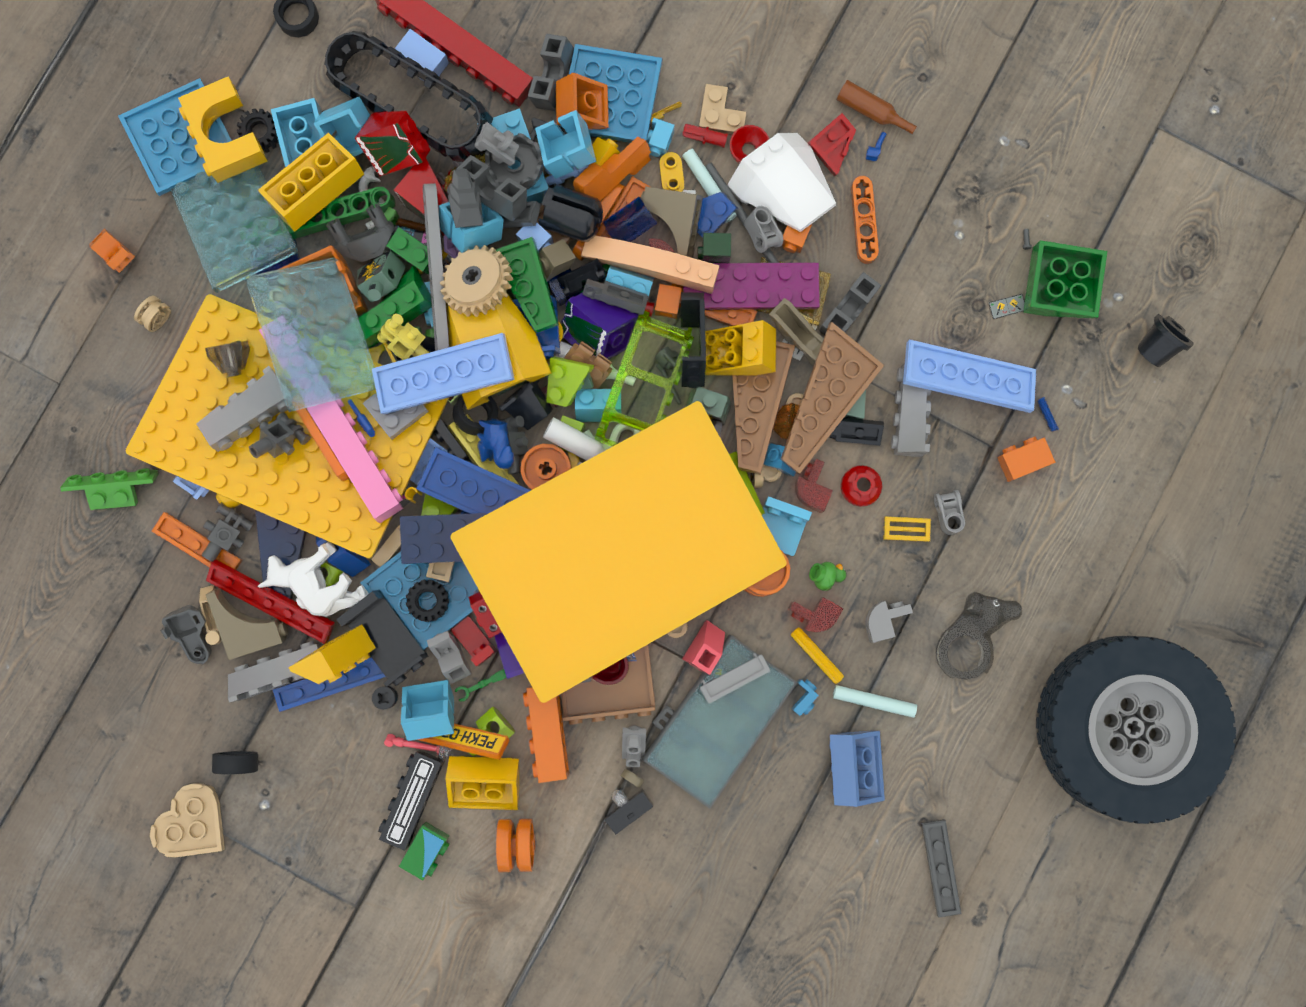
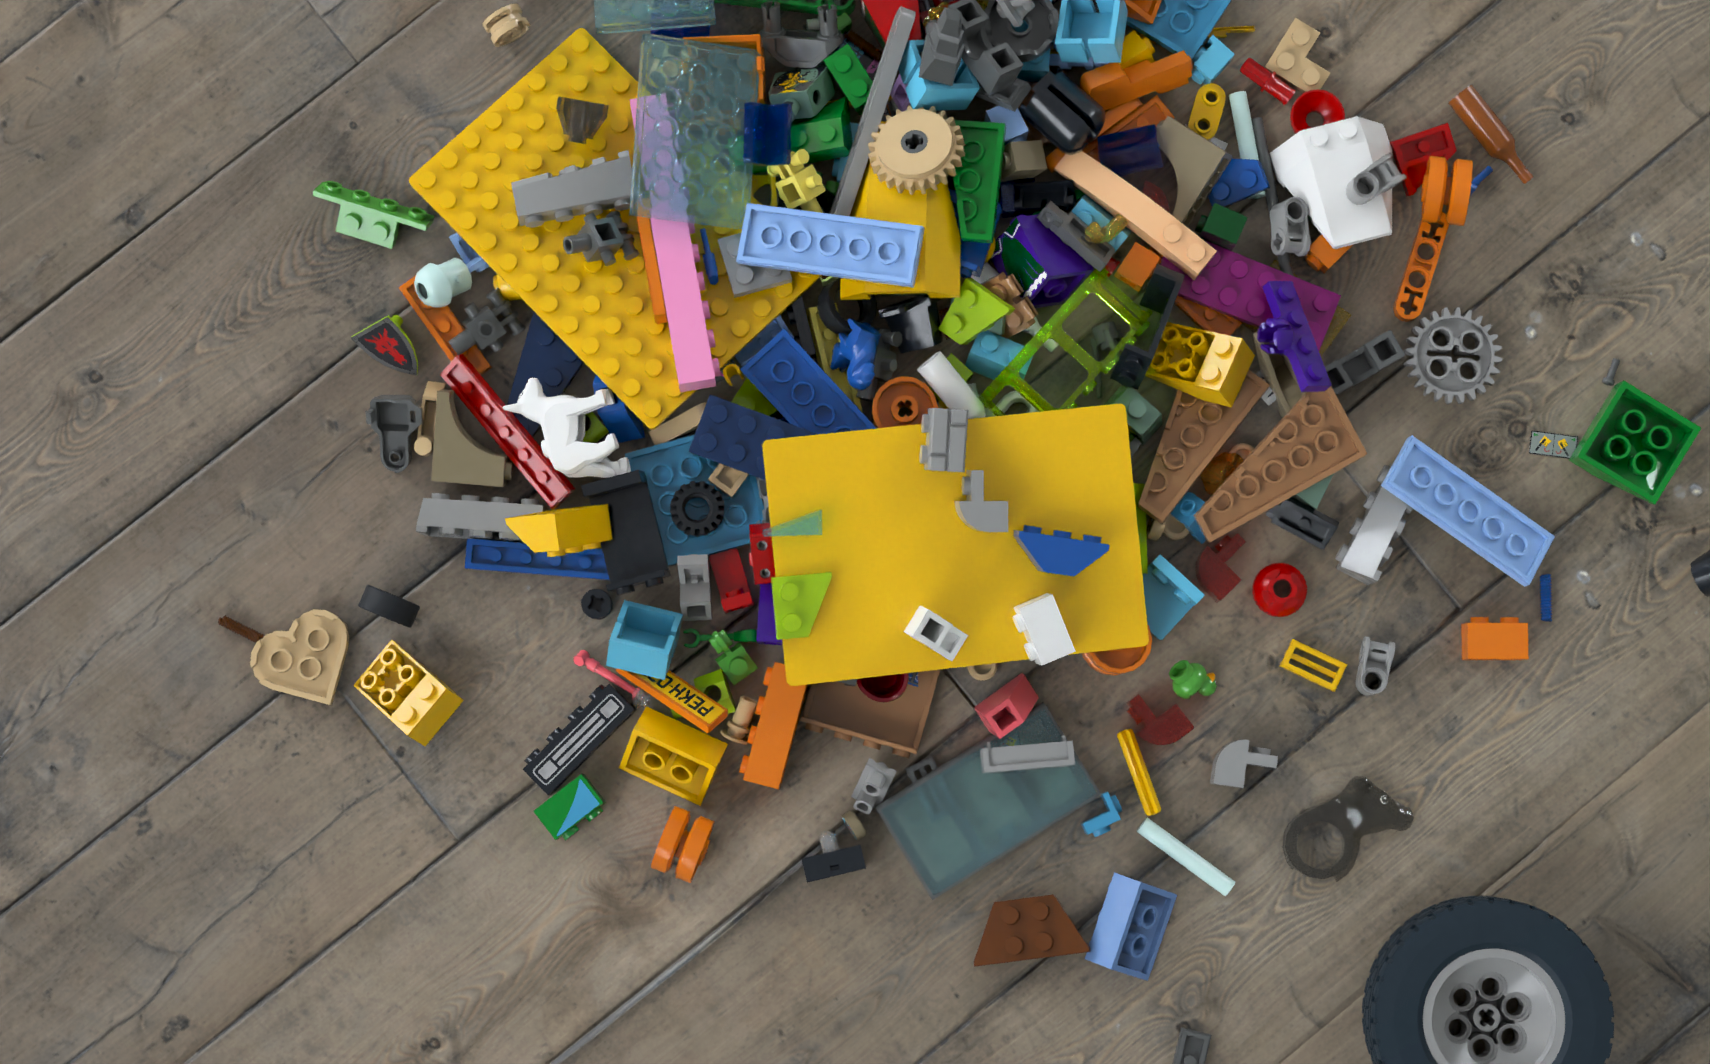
camera: 25 degrees right, 0 degrees up
(136, 822) = (240, 629): none -> reddish brown piece
(159, 574) = (388, 345): none -> shield
(178, 516) = (441, 282): none -> light aqua piece
(276, 818) = (408, 693): none -> yellow slope
(365, 314) = (767, 134): none -> clear blue panel
(499, 698) = (735, 661): none -> bright green plate
(503, 584) = (804, 525): none -> clear light blue piece
(521, 739) = (740, 722): none -> tan pin
(523, 641) = (797, 602): none -> lime wing
(581, 479) = (944, 440): none -> light grey brick
(626, 521) = (977, 513): none -> light grey brick
(632, 621) = (935, 633): none -> white brick
(636, 285) = (1108, 232): none -> clear yellow arm
(697, 525) = (1059, 552): none -> blue slope
(708, 585) = (1043, 629): none -> white brick
(786, 802) = (1028, 931): none -> reddish brown wing
(797, 304) = (1292, 336): none -> dark purple plate
(810, 168) = (1378, 177): none -> light grey piece
(862, 158) = (1448, 191): none -> orange wheel
(906, 255) = (1451, 382): none -> light grey gear

